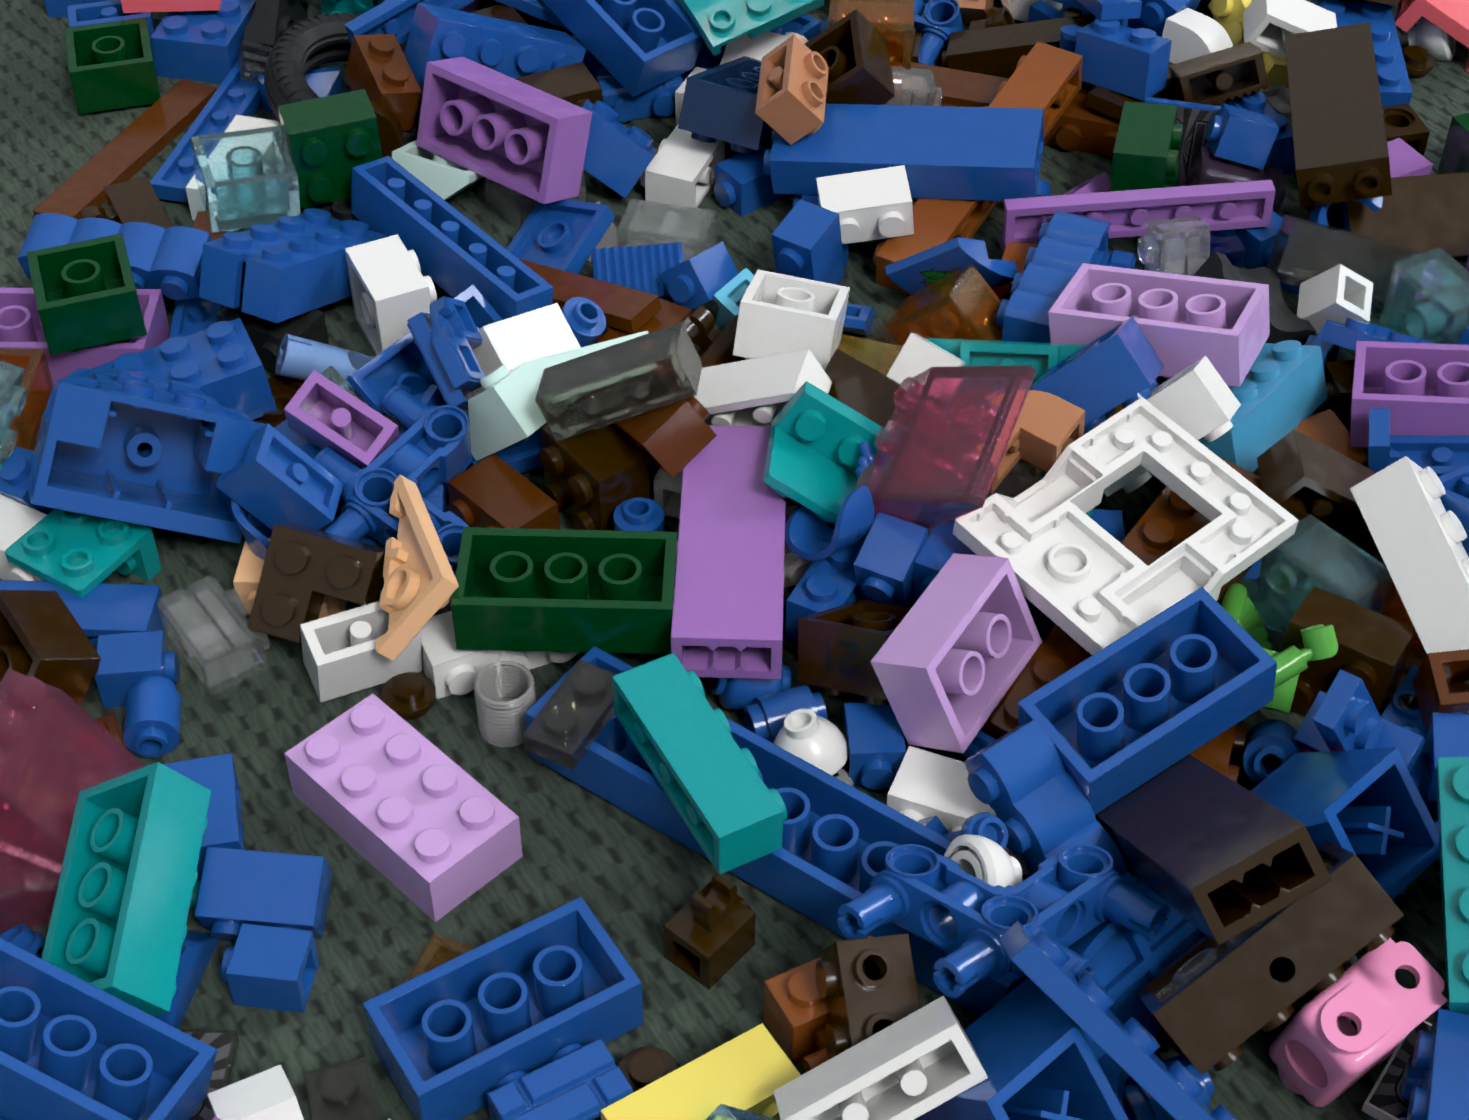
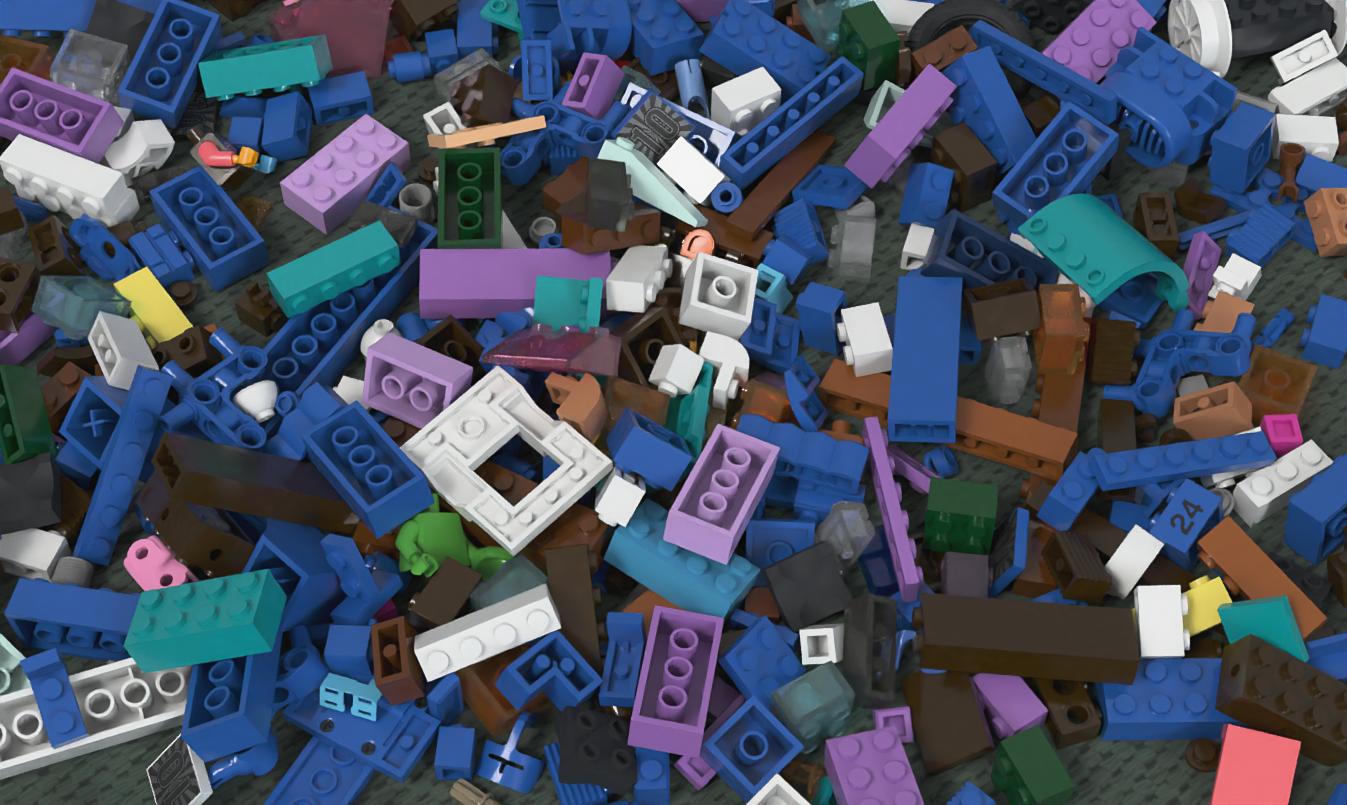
camera: 85 degrees right, 10 degrees up
(361, 962) = (223, 161): none -> torso
(453, 340) = (643, 116): blue tile -> none
(474, 739) = (388, 187): none -> blue slope
(792, 90) = (945, 269): nougat brick -> none
(890, 326) = (729, 366): none -> white brick
(1241, 136) = (992, 574): blue brick -> none

